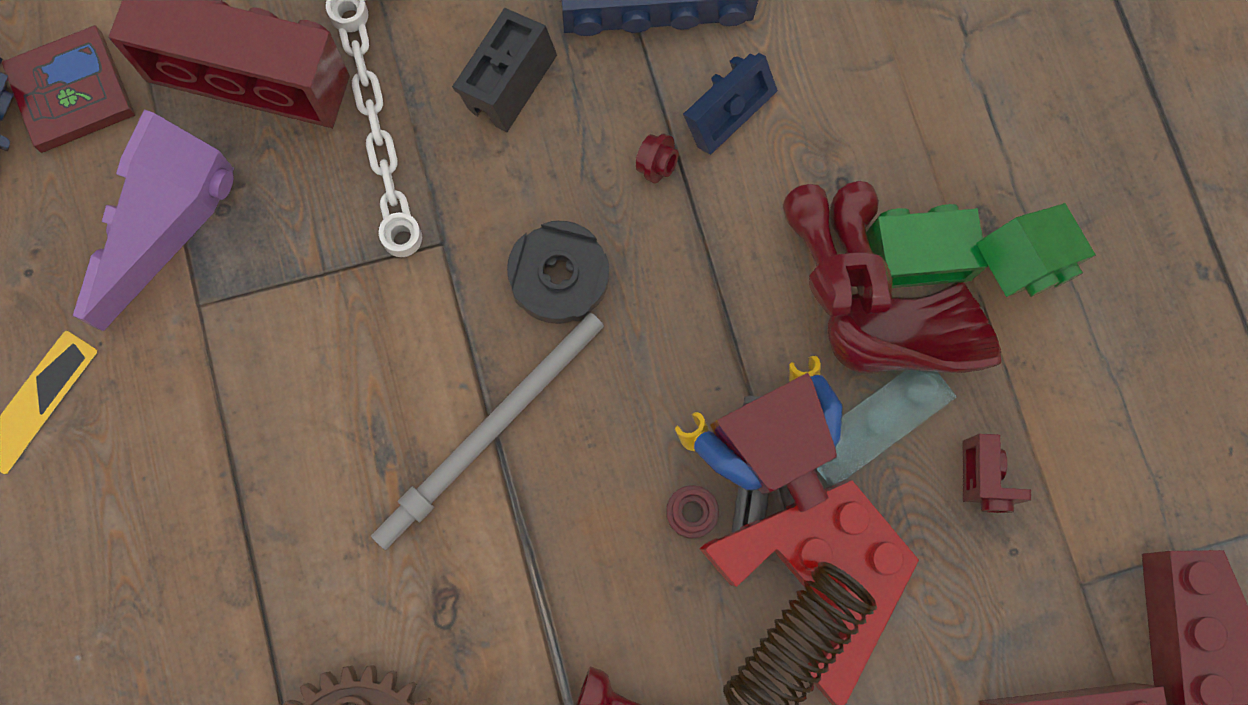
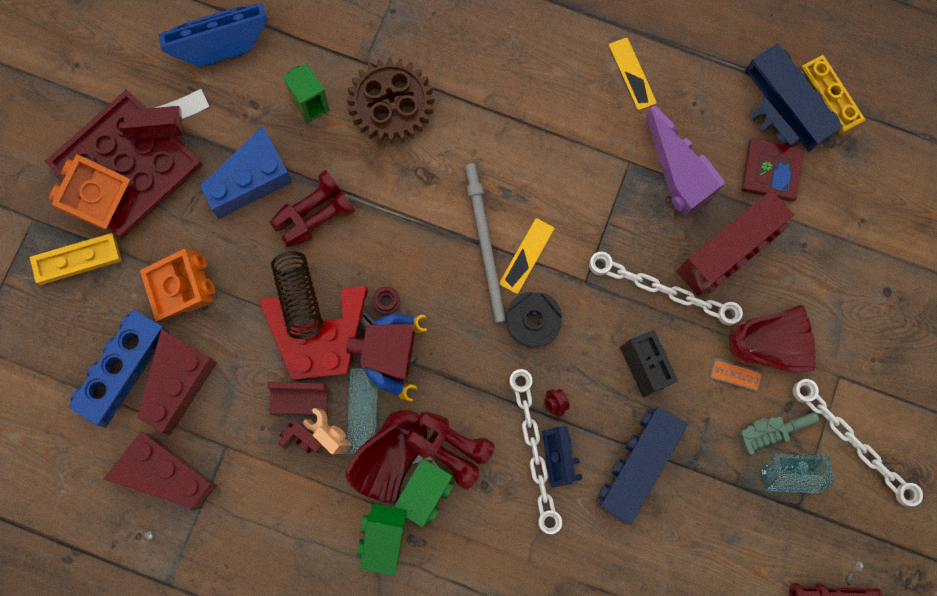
camera: 125 degrees right, 0 degrees up
(463, 355) = (526, 256): none -> yellow sticker
(823, 47) = (536, 458): none -> white piece
(937, 528) = (297, 398): none -> dark red panel
(960, 434) = (329, 436): none -> light nougat plate

